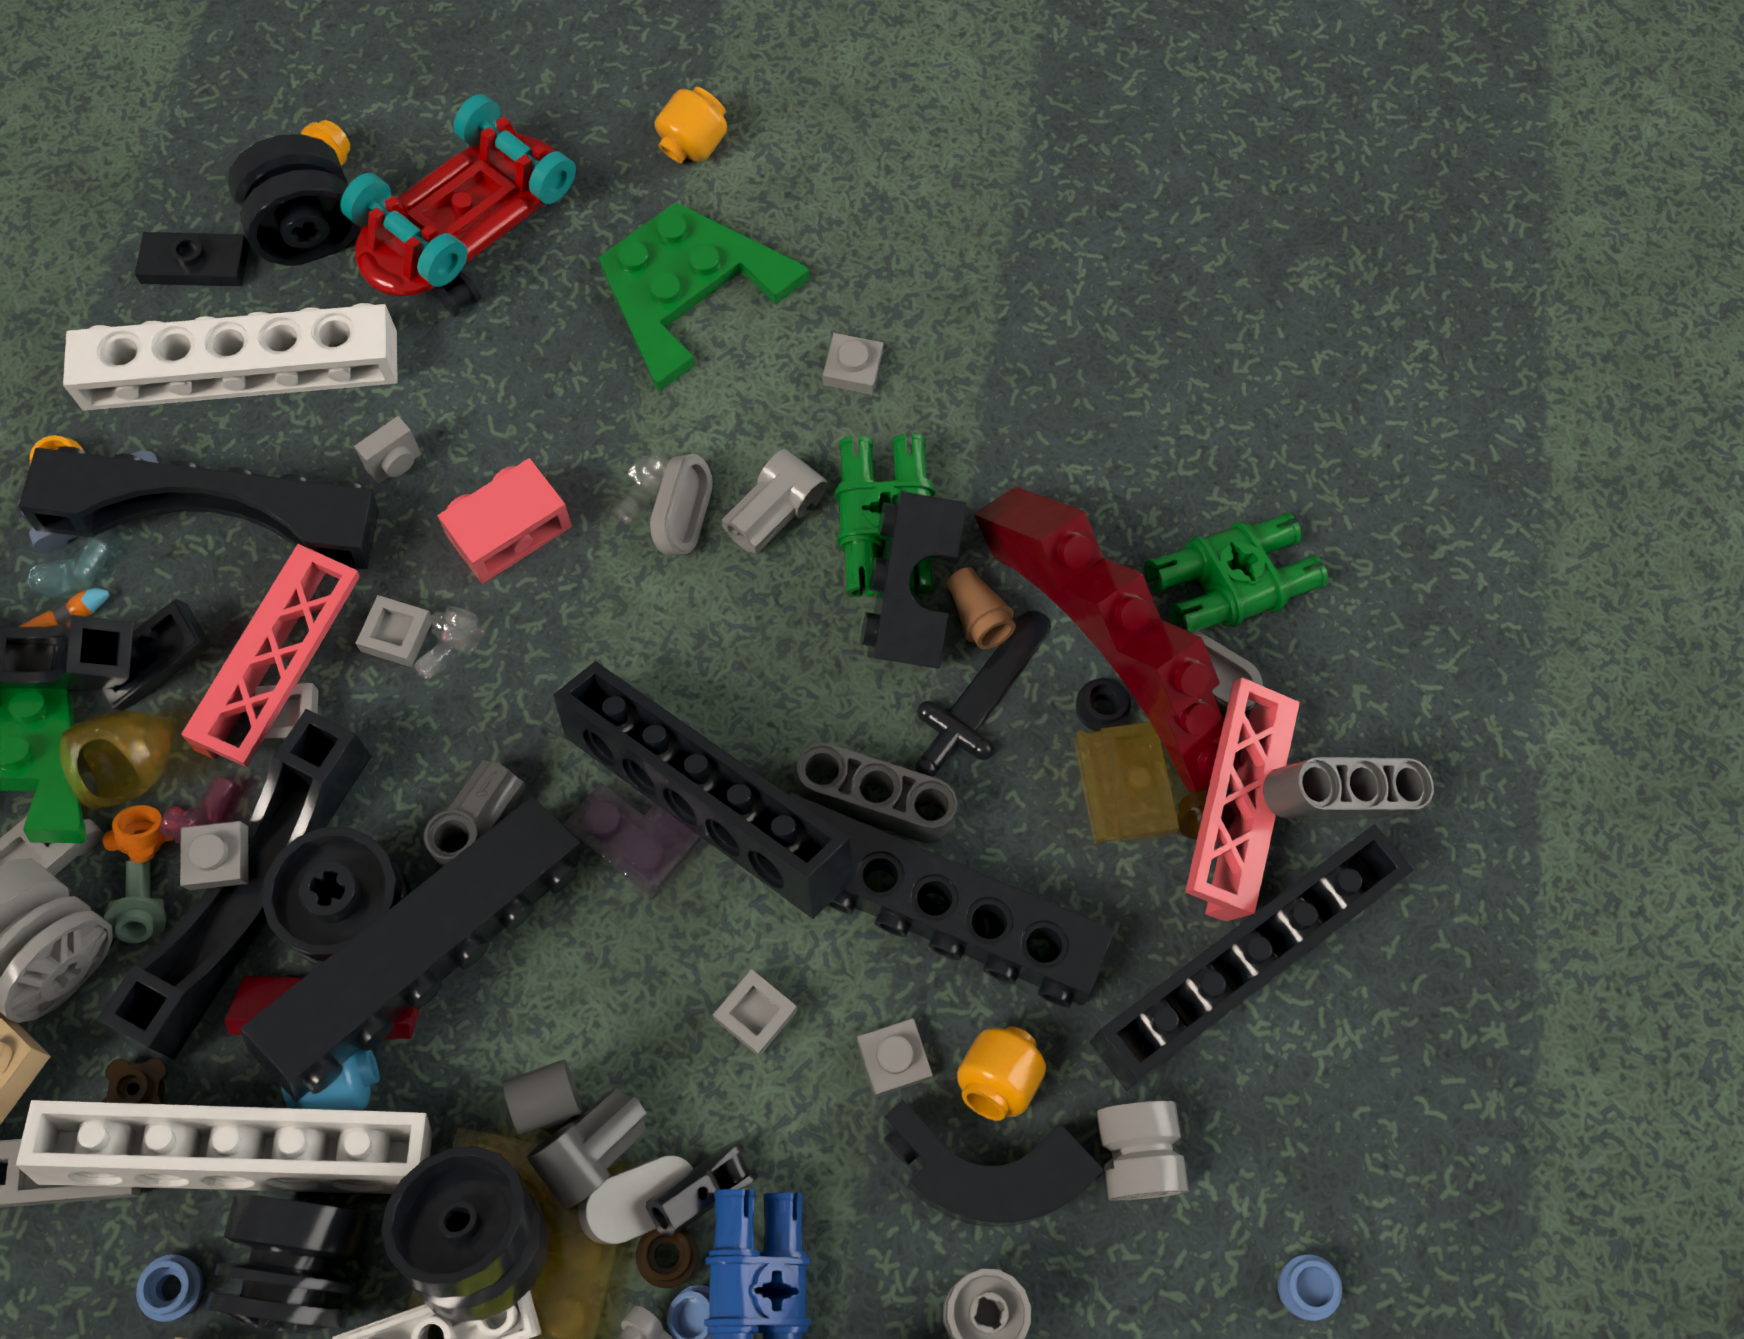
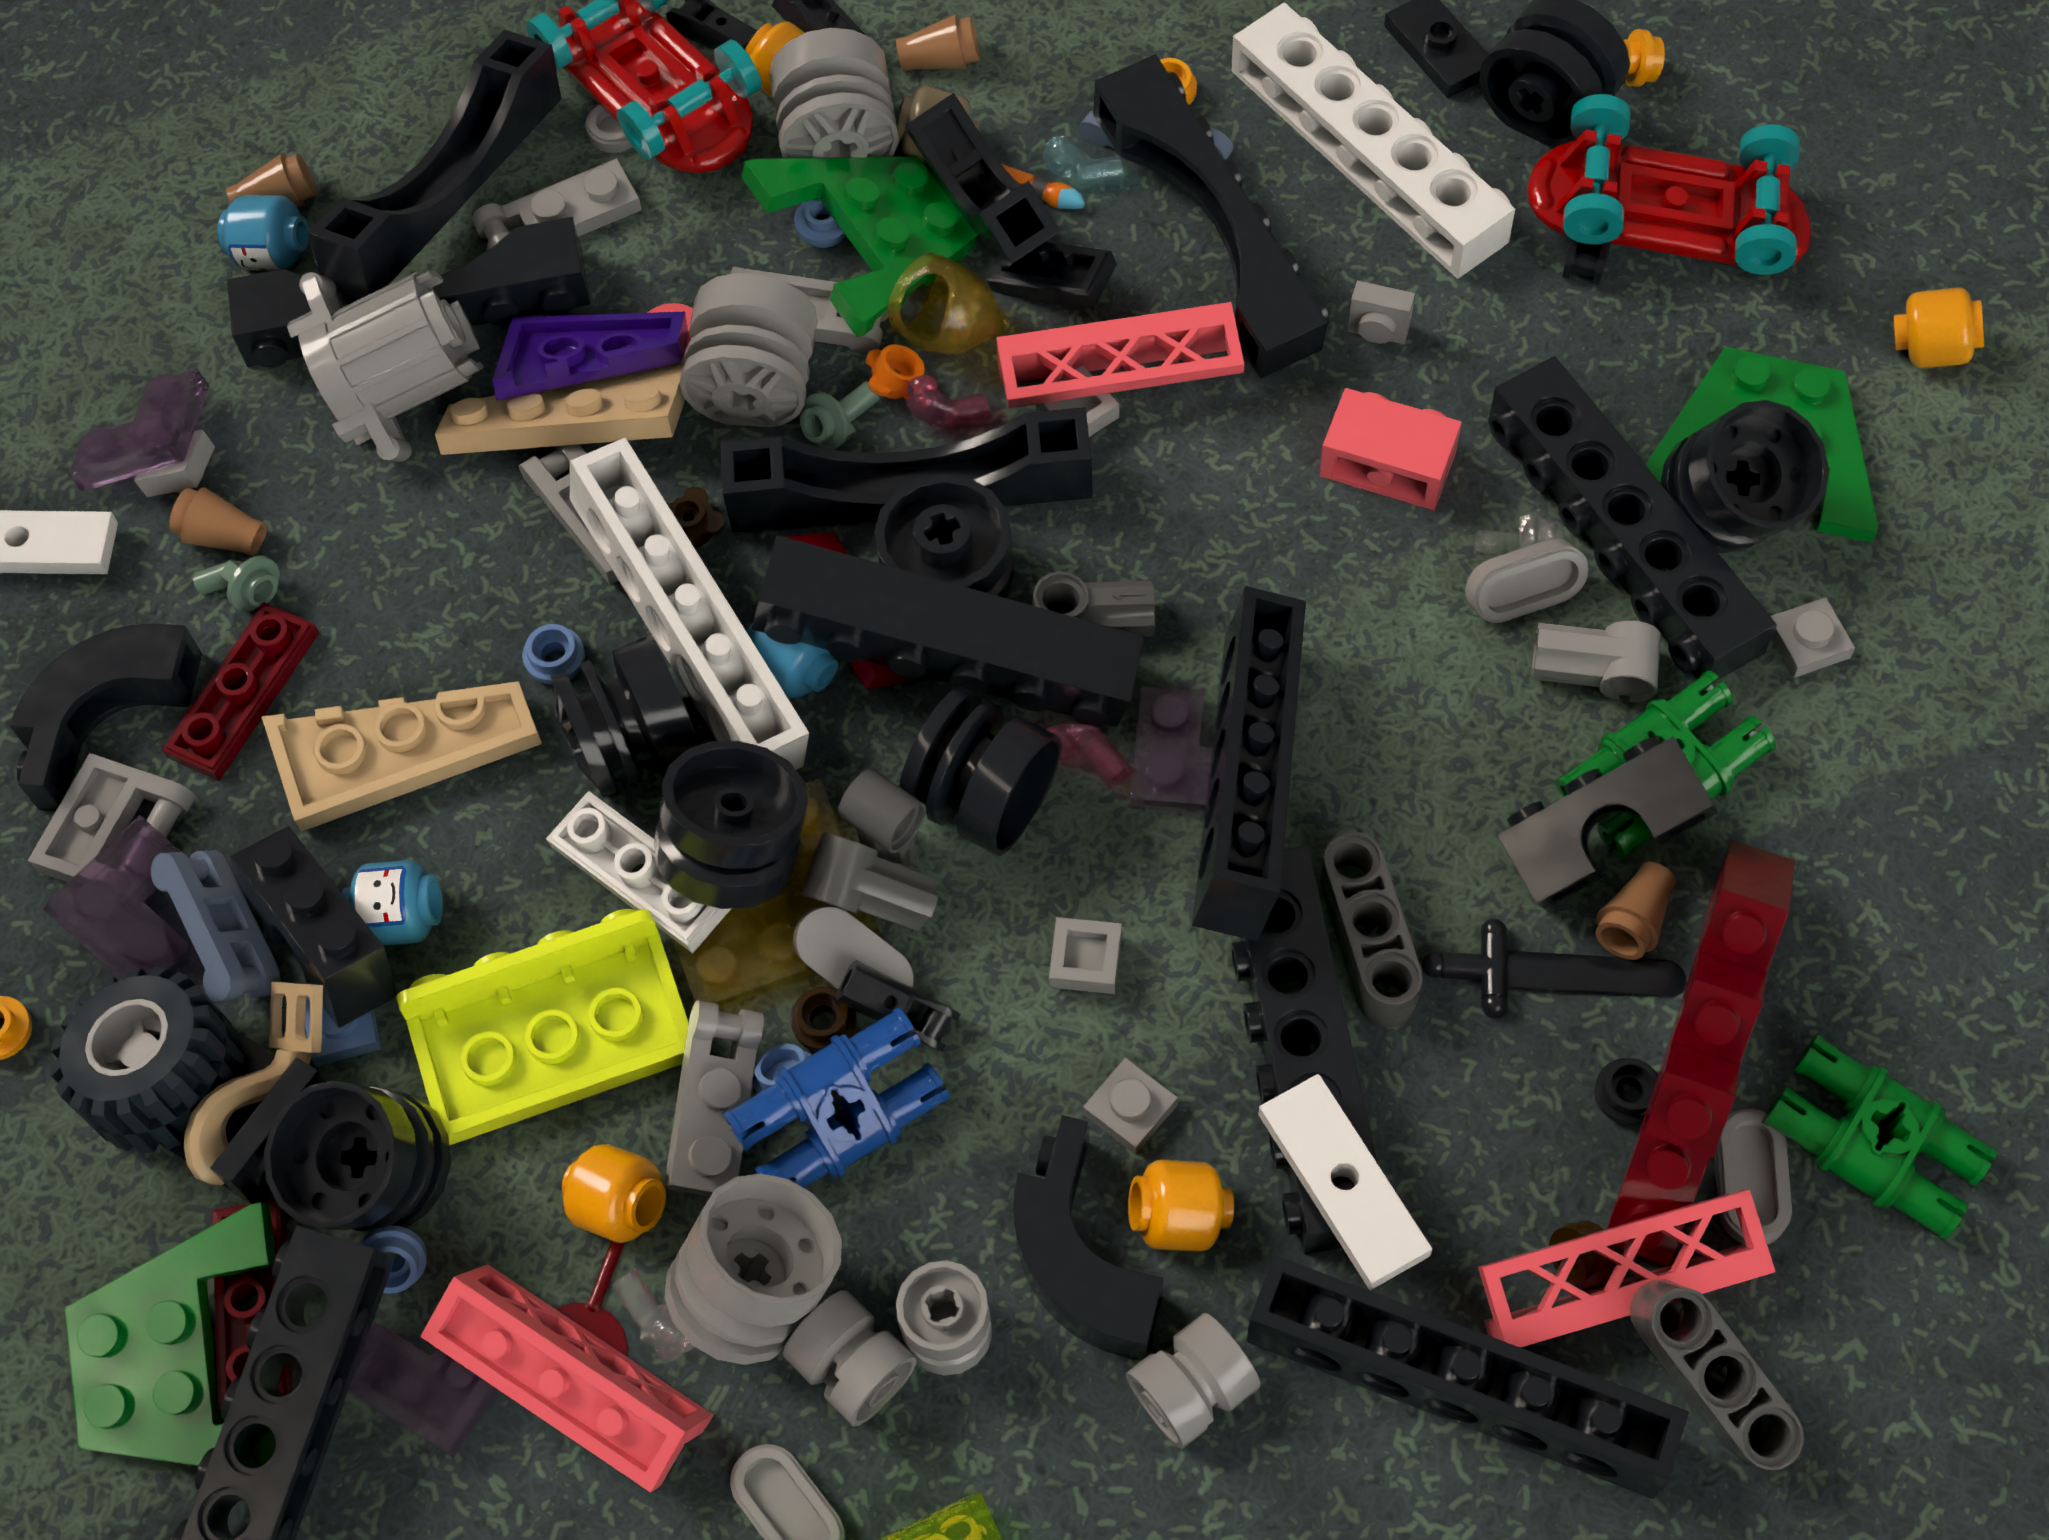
camera: 65 degrees right, 5 degrees down
(214, 855) = (914, 435): light grey plate -> none
(394, 631) = (1217, 435): light grey plate -> none
(457, 632) = (1255, 486): clear plate -> none
(553, 995) = (981, 770): none -> black wheel
(580, 901) = (1090, 748): none -> clear pink arm
(661, 392) = (1626, 490): none -> black brick
(719, 313) = (1748, 474): none -> black wheel
(1111, 941) = (1324, 1146): none -> white tile
(1126, 783) = (1559, 1158): clear yellow plate -> none

